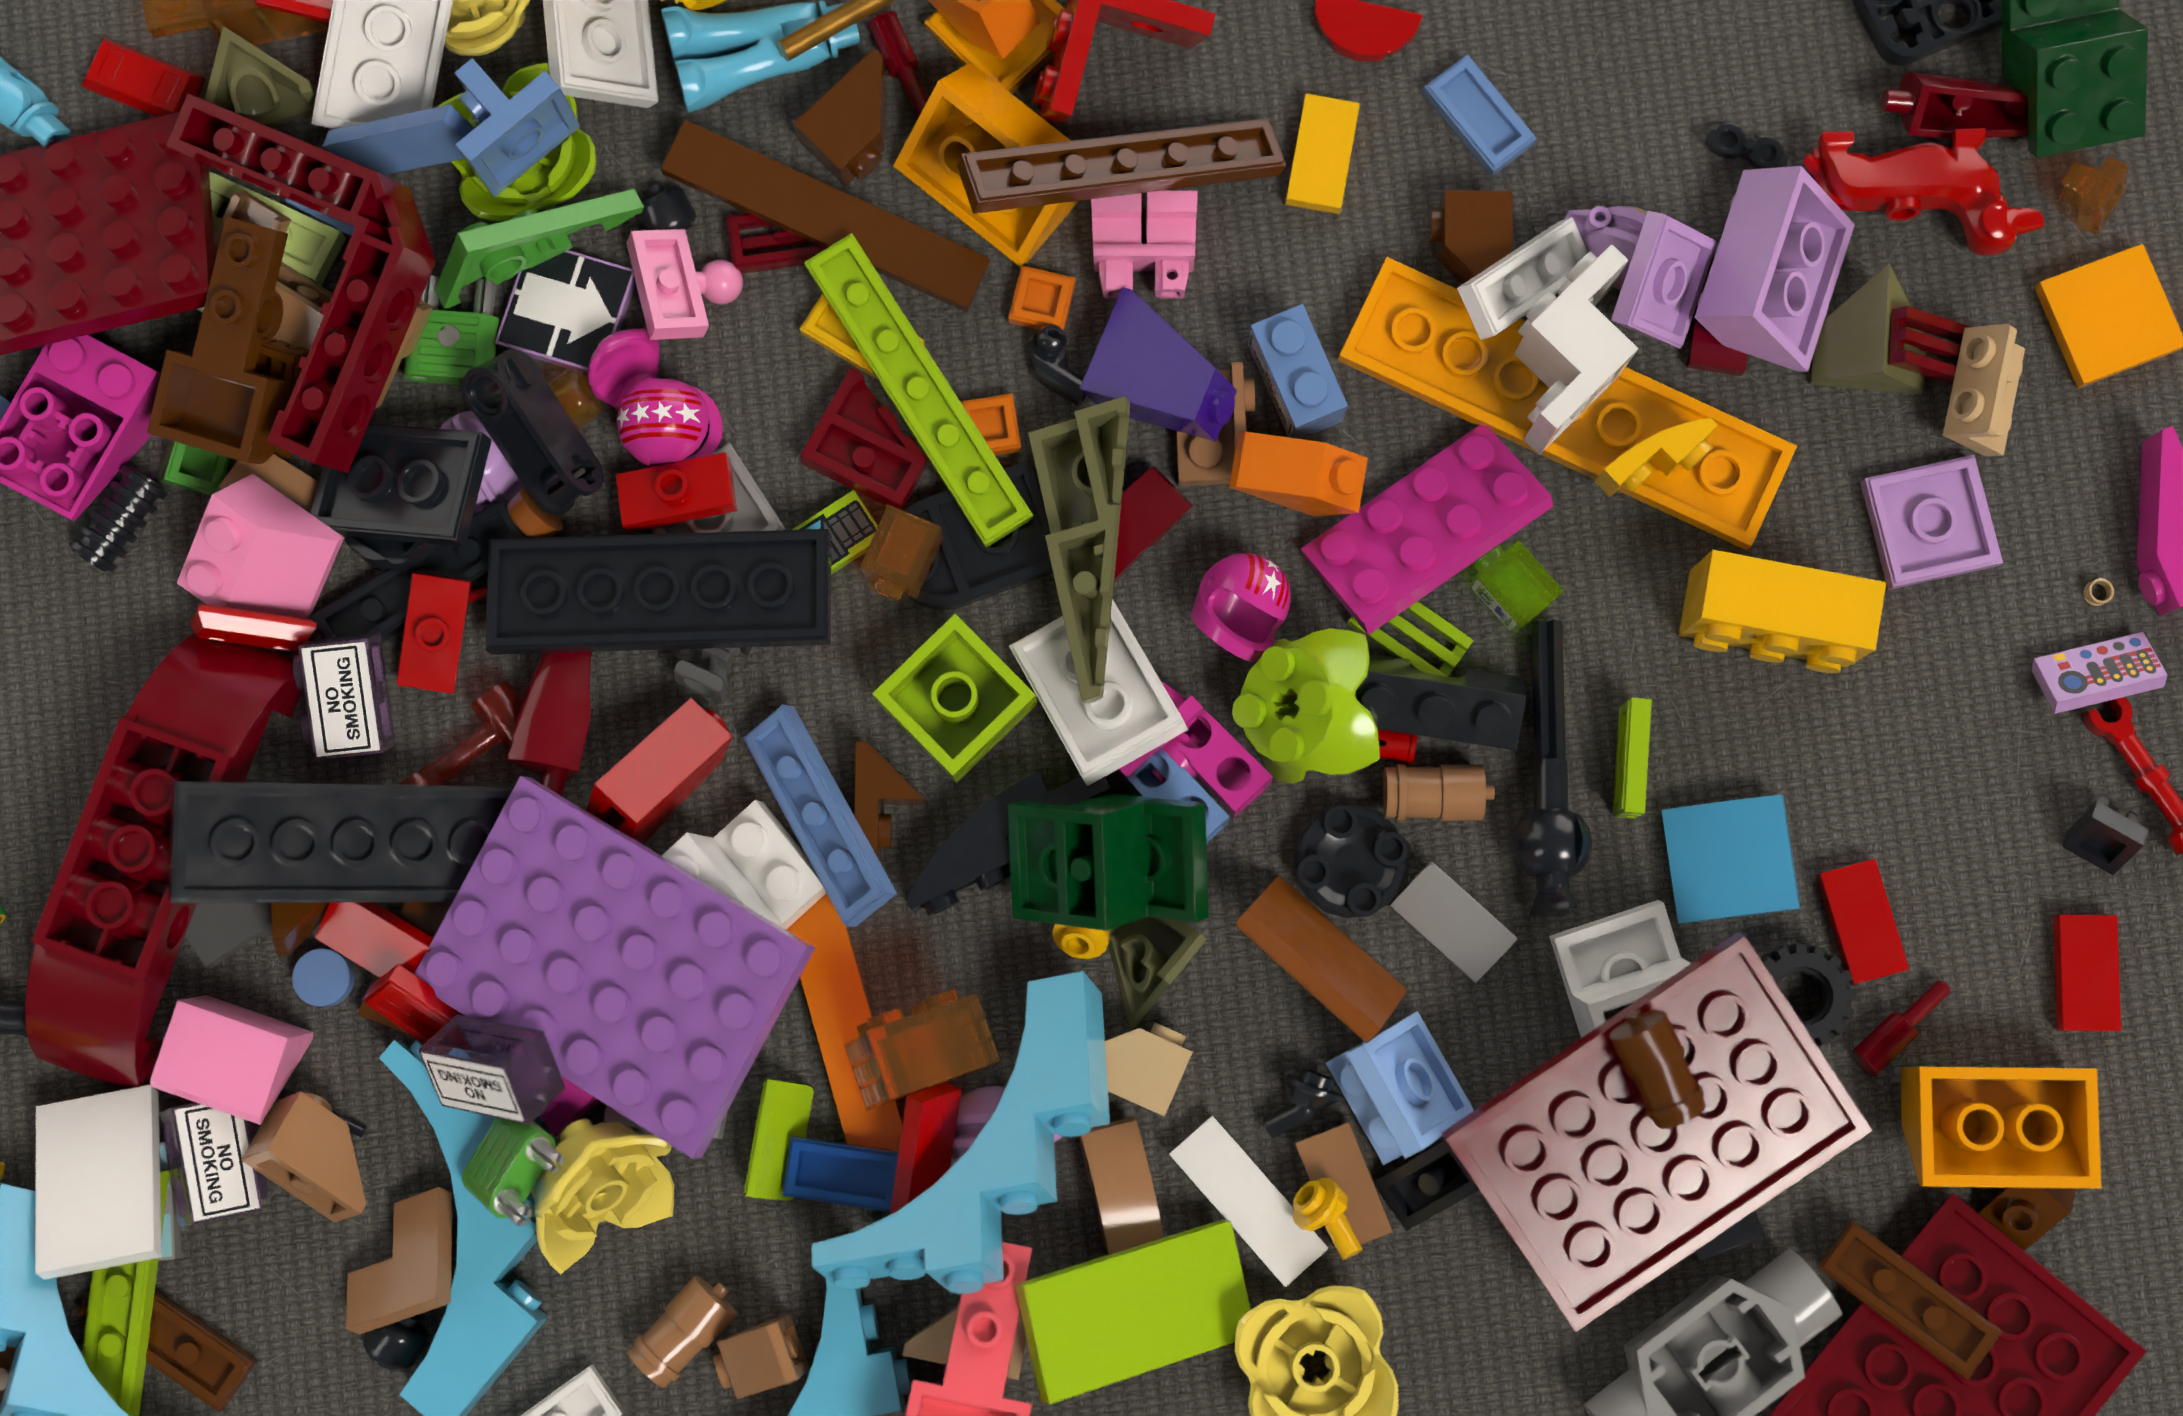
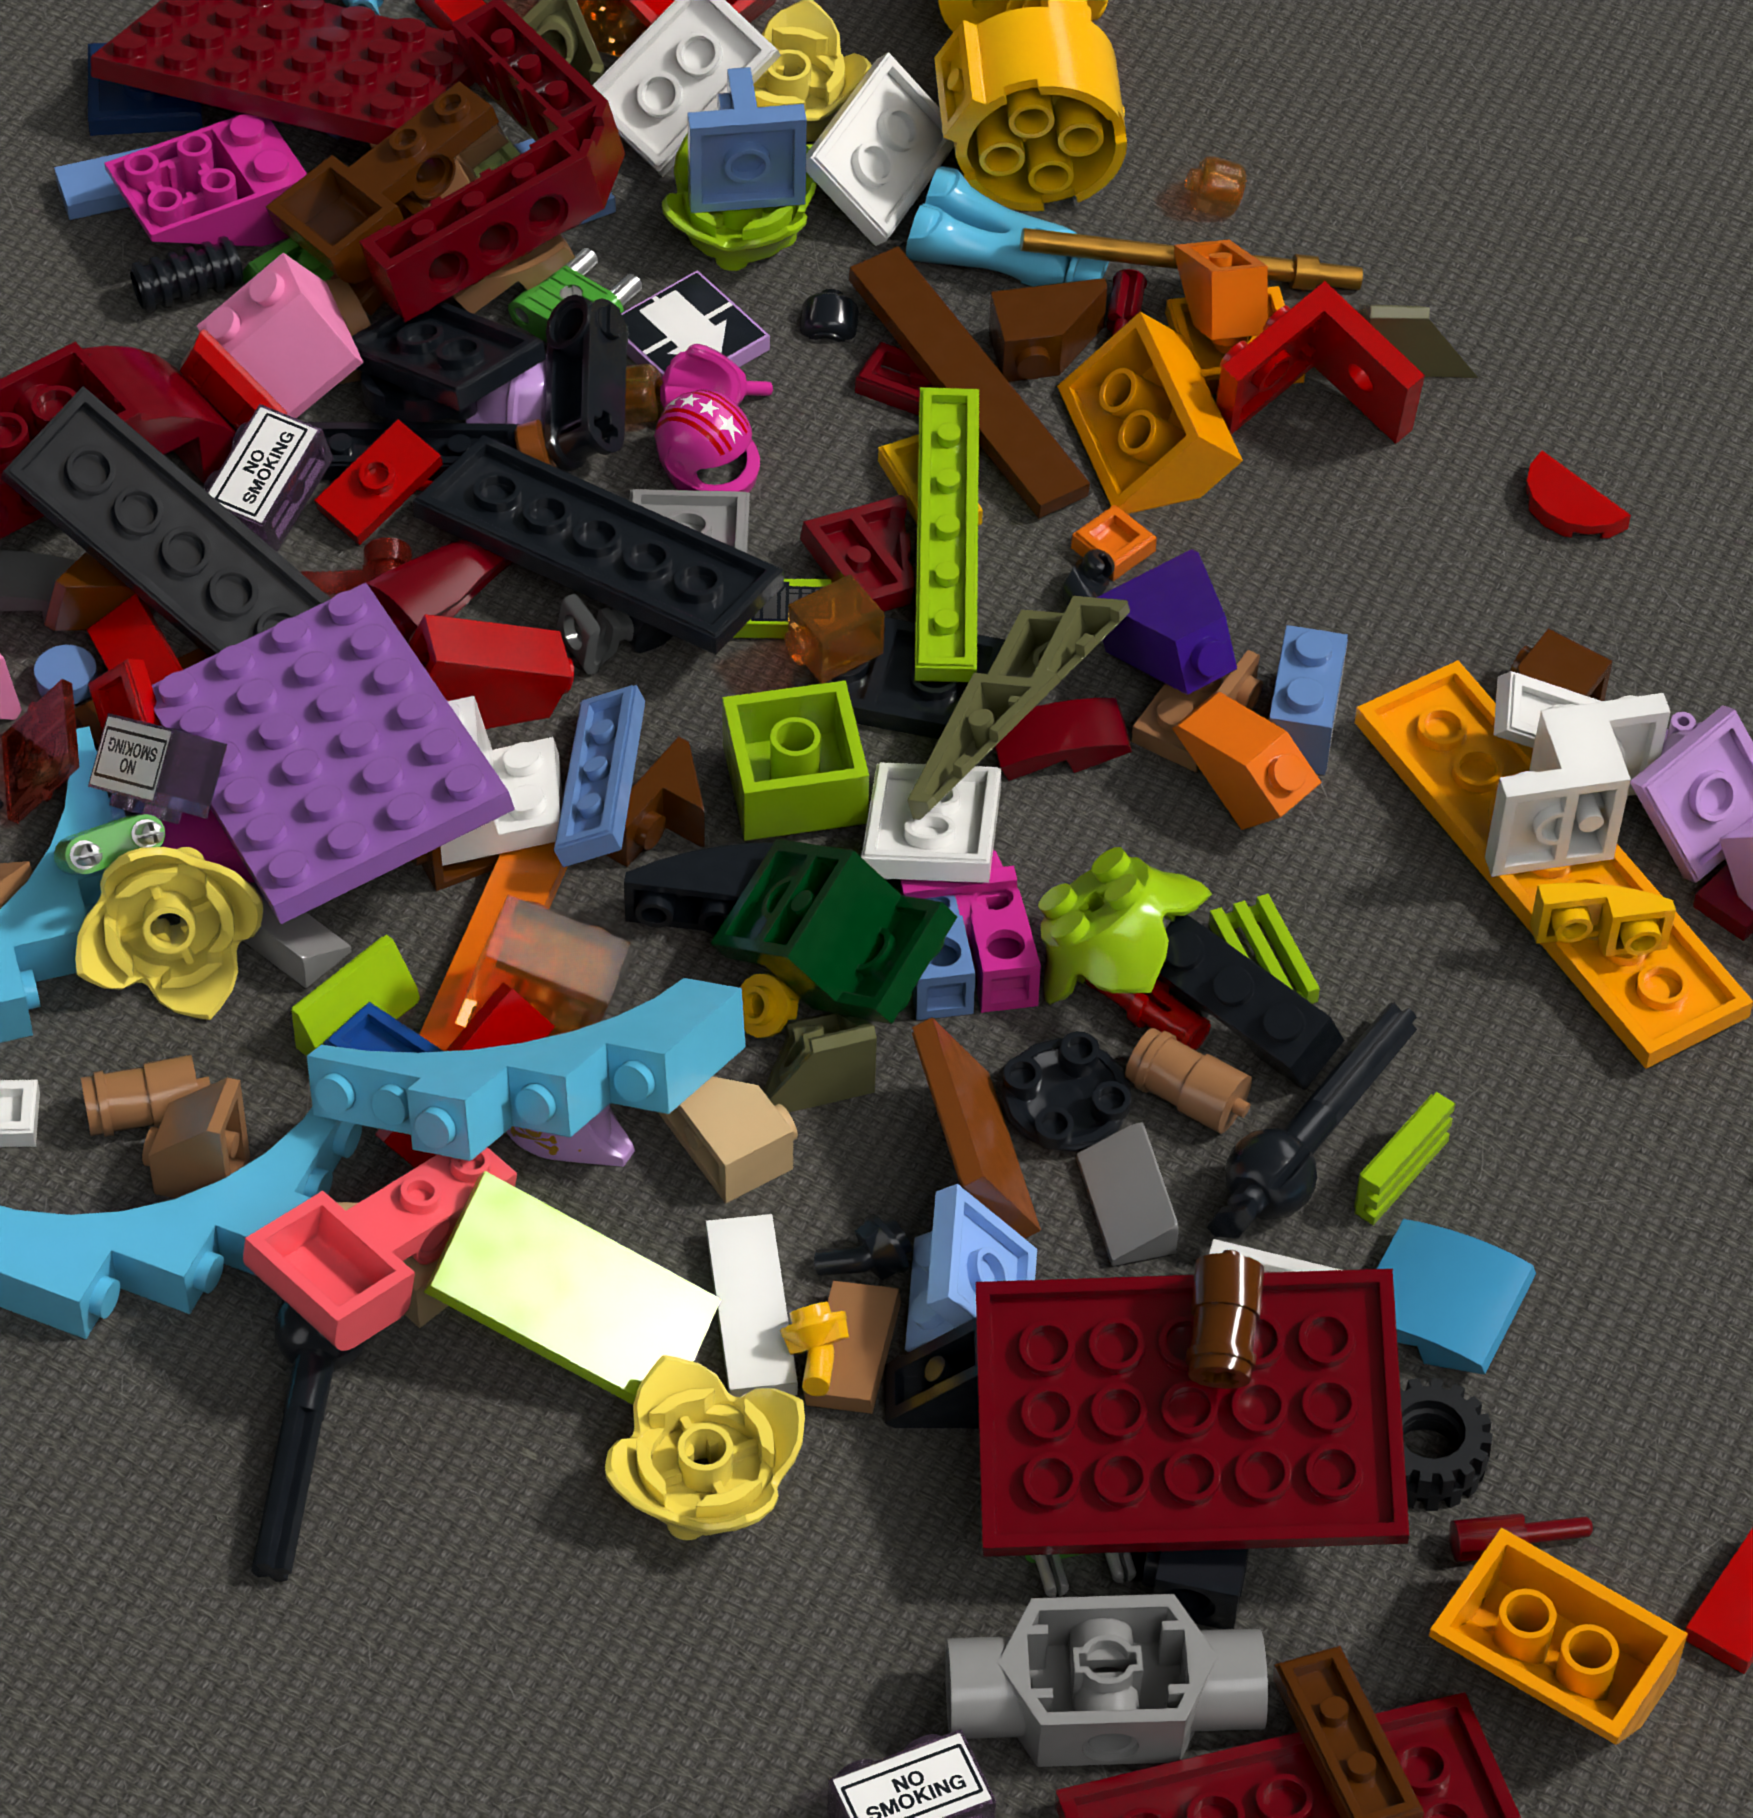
camera: 30 degrees right, 30 degrees down
(367, 1078) = (40, 751): none -> clear red piece
(402, 140) = (655, 133): medium blue tile -> none
(525, 241) = (688, 252): bright green wing -> none
(671, 286) = (791, 358): bright pink plate -> none
(676, 492) = (675, 491): red plate -> none
(996, 422) = (999, 604): orange tile -> none
(1119, 165) = (1260, 454): reddish brown tile -> none
(1121, 1185) = (646, 1202): medium nougat slope -> none
(1168, 244) = (1246, 536): bright pink hips -> none
(1242, 604) = (1124, 816): dark pink helmet -> none
(1322, 153) = (1458, 569): yellow tile -> none
(1427, 528) = (1339, 873): dark pink plate -> none
(1479, 115) = (1630, 617): medium blue tile -> none
(1514, 586) = (1390, 964): clear neon green brick -> none
(1781, 611) = (1637, 1102): yellow brick -> none
(1862, 921) = (1541, 1426): red tile -> none
(2027, 1212) = (1543, 1748): reddish brown bracket -> none

